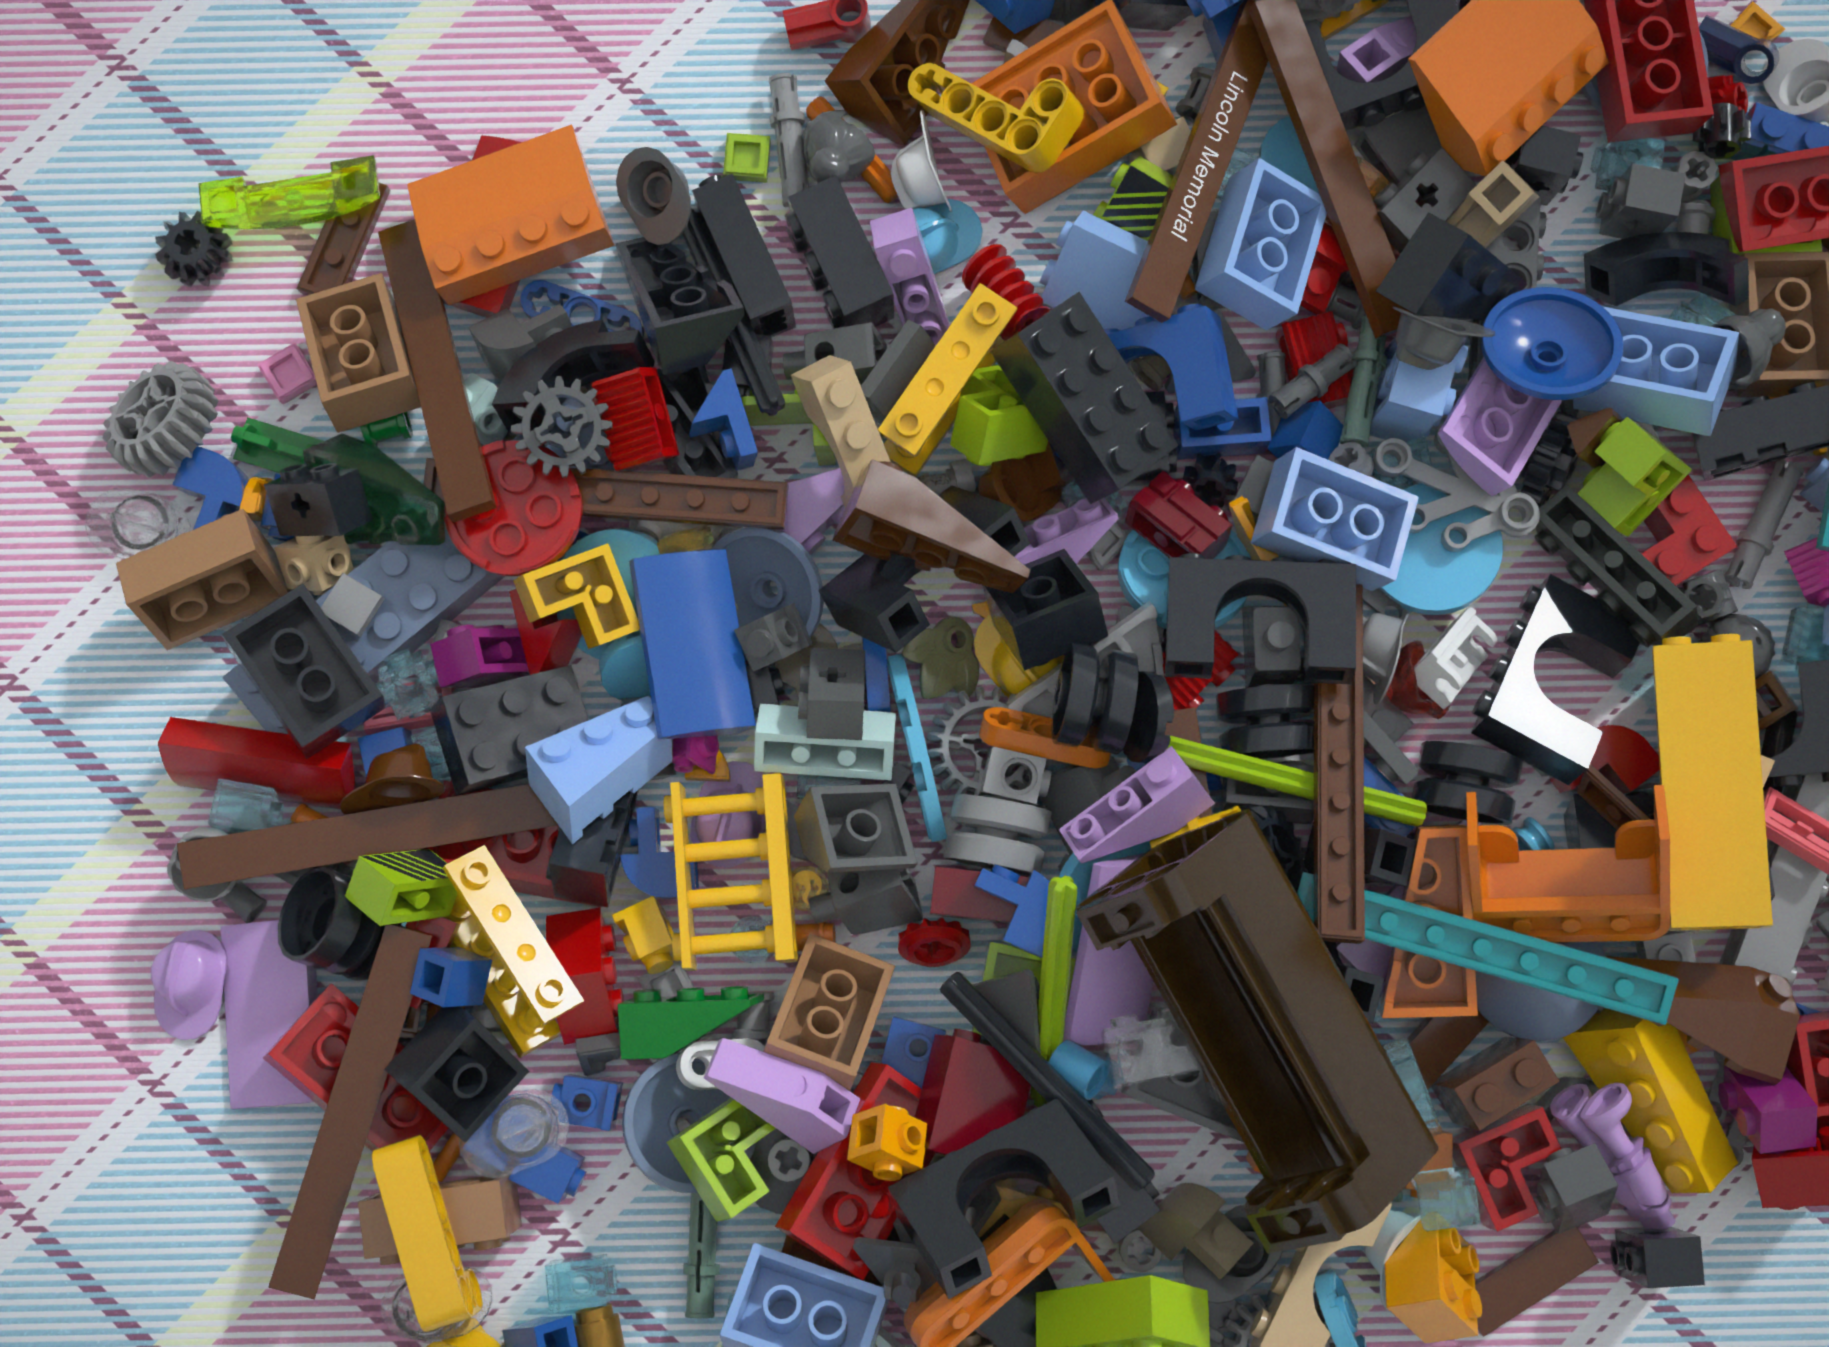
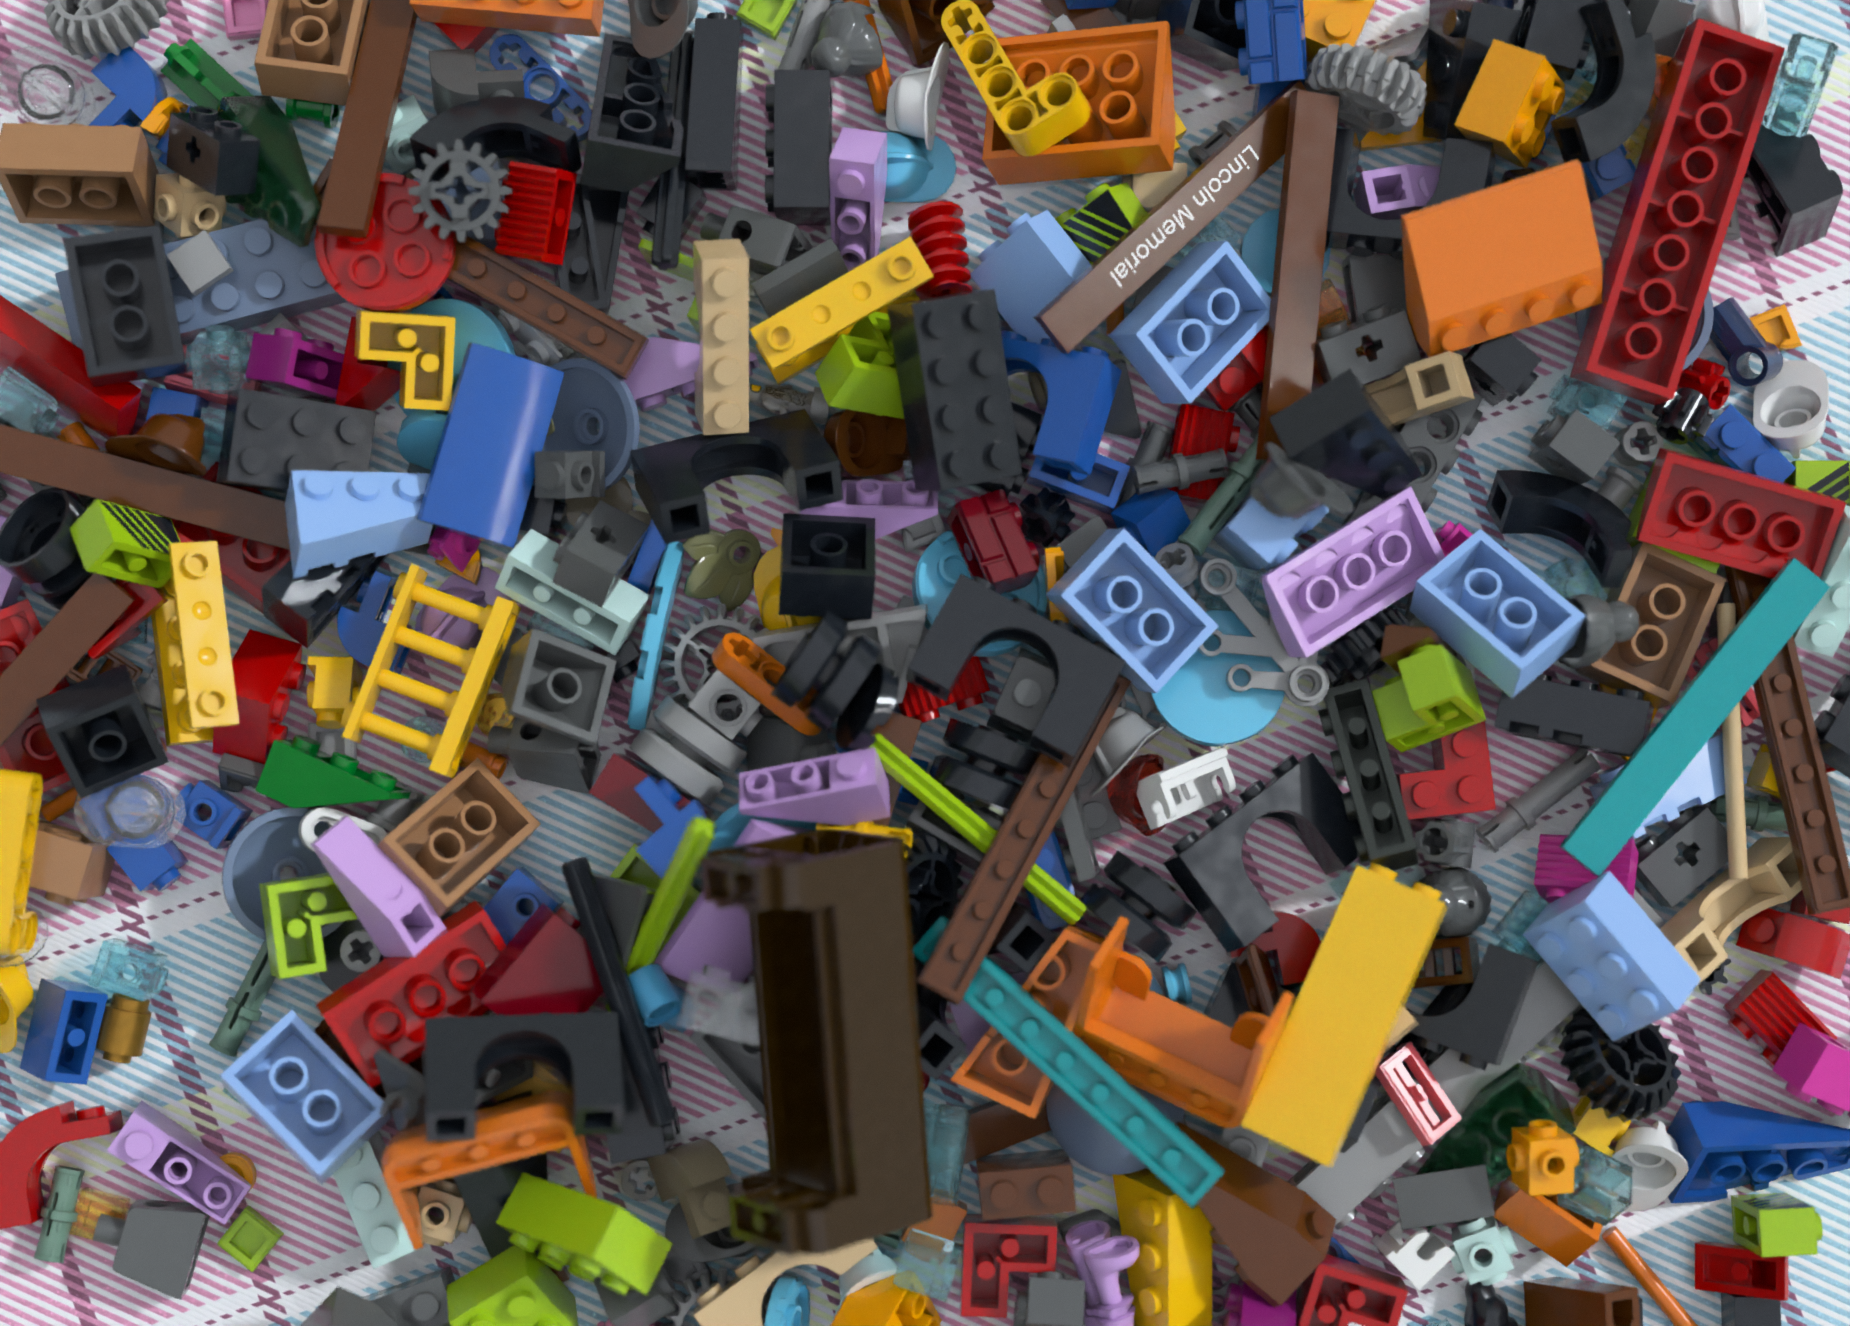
camera: 20 degrees right, 5 degrees up
(451, 976) = (134, 645): blue brick -> none
(686, 540) = (532, 347): clear yellow tile -> none
(726, 412) = (621, 242): blue slope -> none
(887, 1142) = (446, 978): light orange brick -> none
(906, 518) = (729, 417): wedge -> none
(947, 941) = (587, 819): red gear -> none
(1552, 343) = (1421, 529): blue dish -> none

